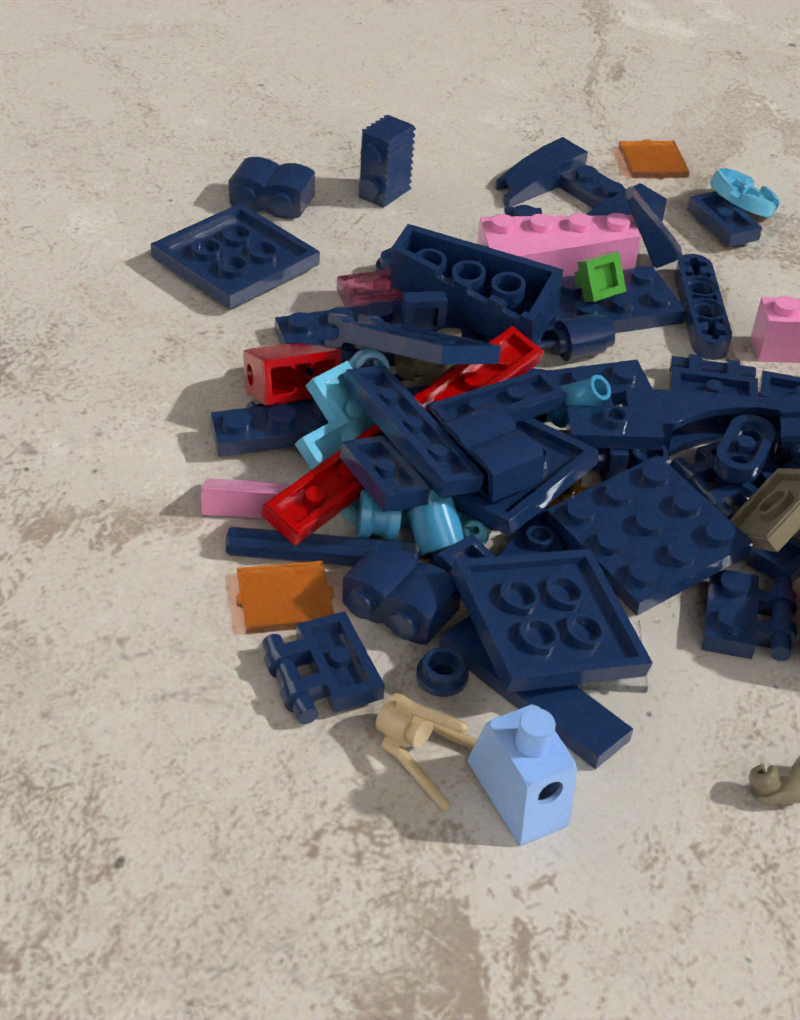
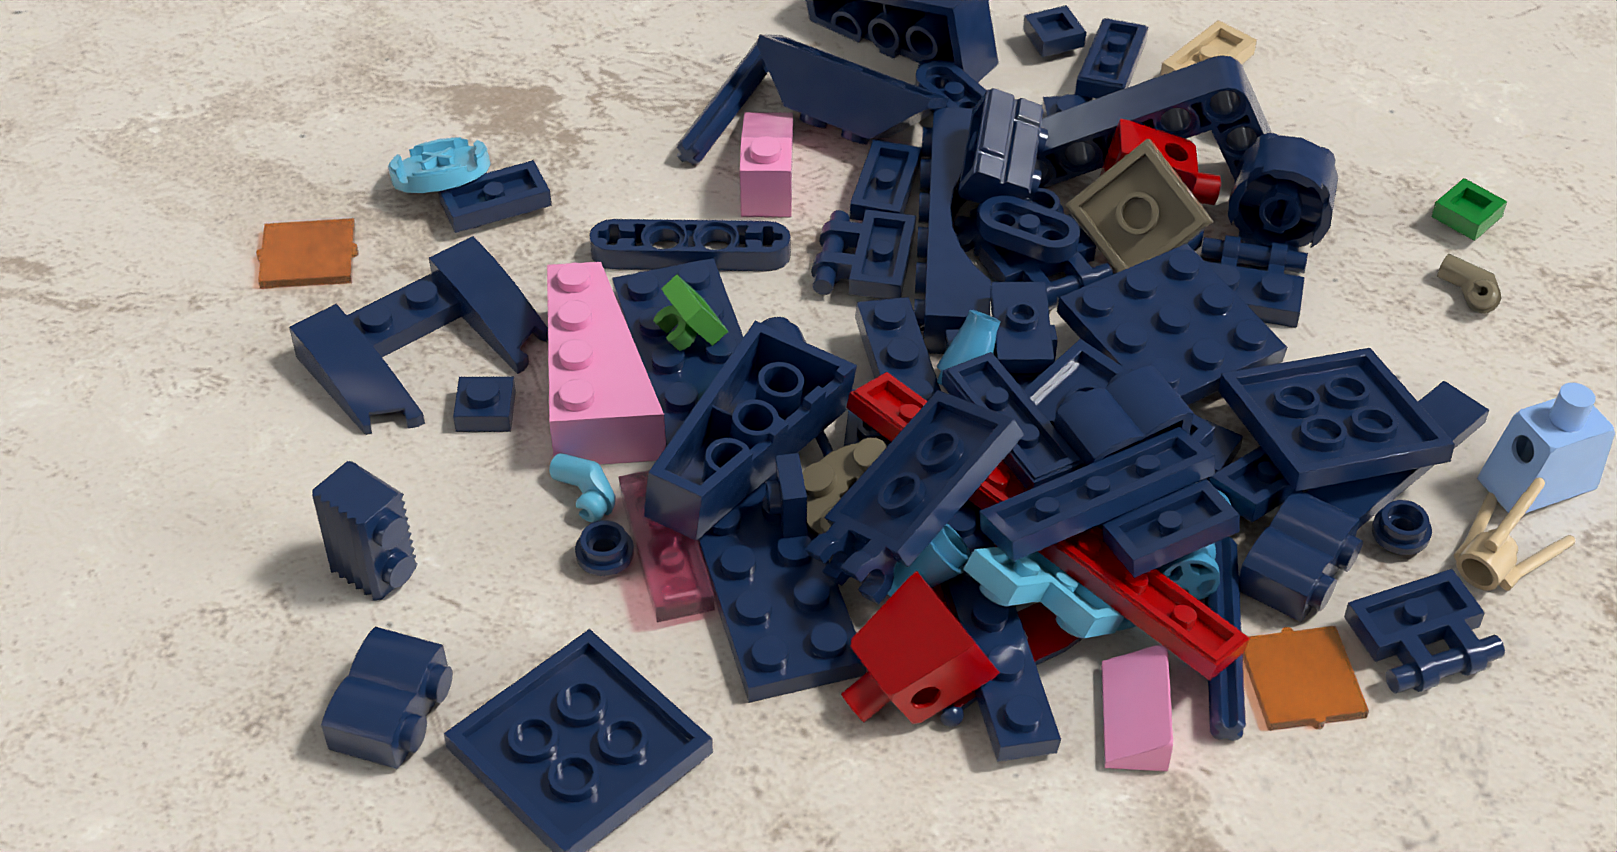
camera: 85 degrees left, 5 degrees up
(657, 238) = (563, 252): dark blue slope -> none

